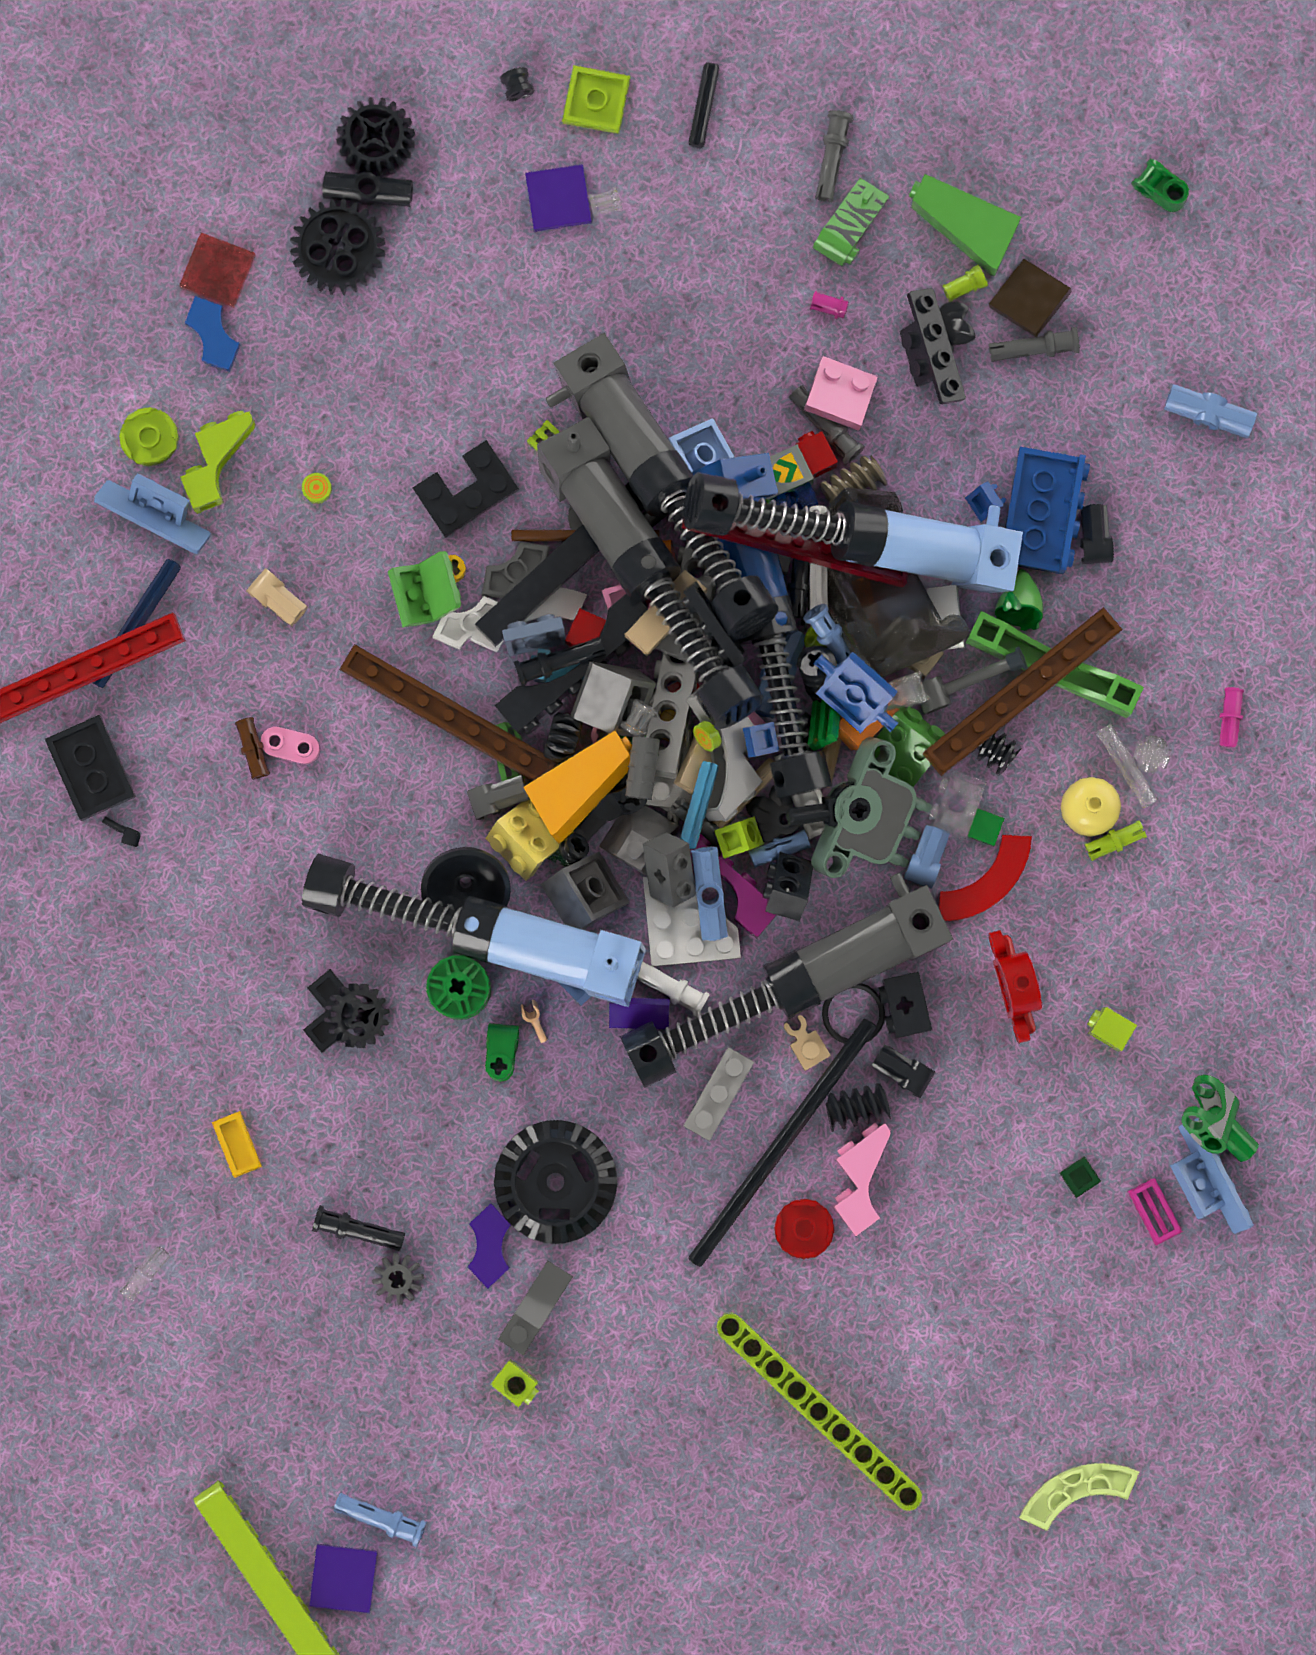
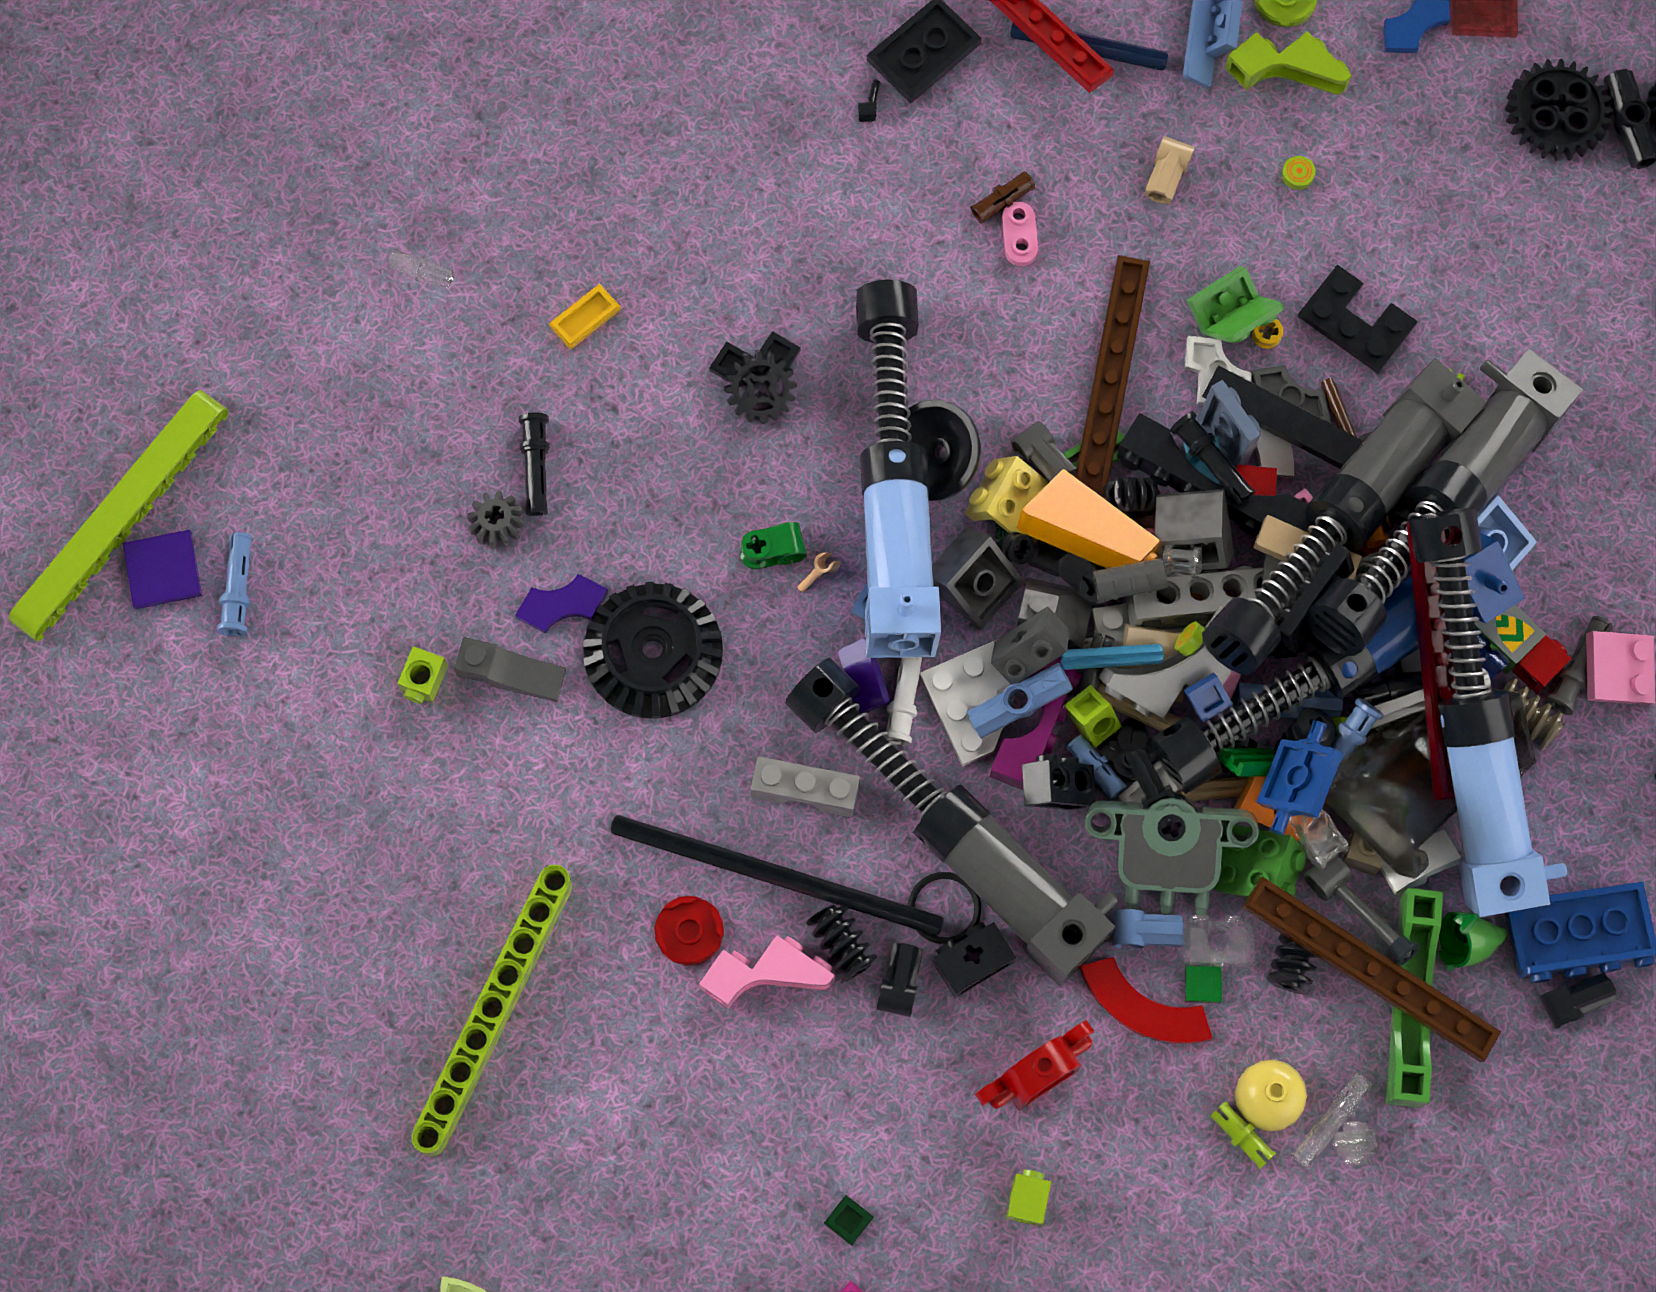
camera: 70 degrees right, 10 degrees down
(476, 991) = (826, 495): green wheel -> none
(808, 1047) = (890, 869): tan plate -> none
(982, 498) = (1574, 859): blue tile -> none
(1231, 716) = (1433, 1222): dark pink axle -> none

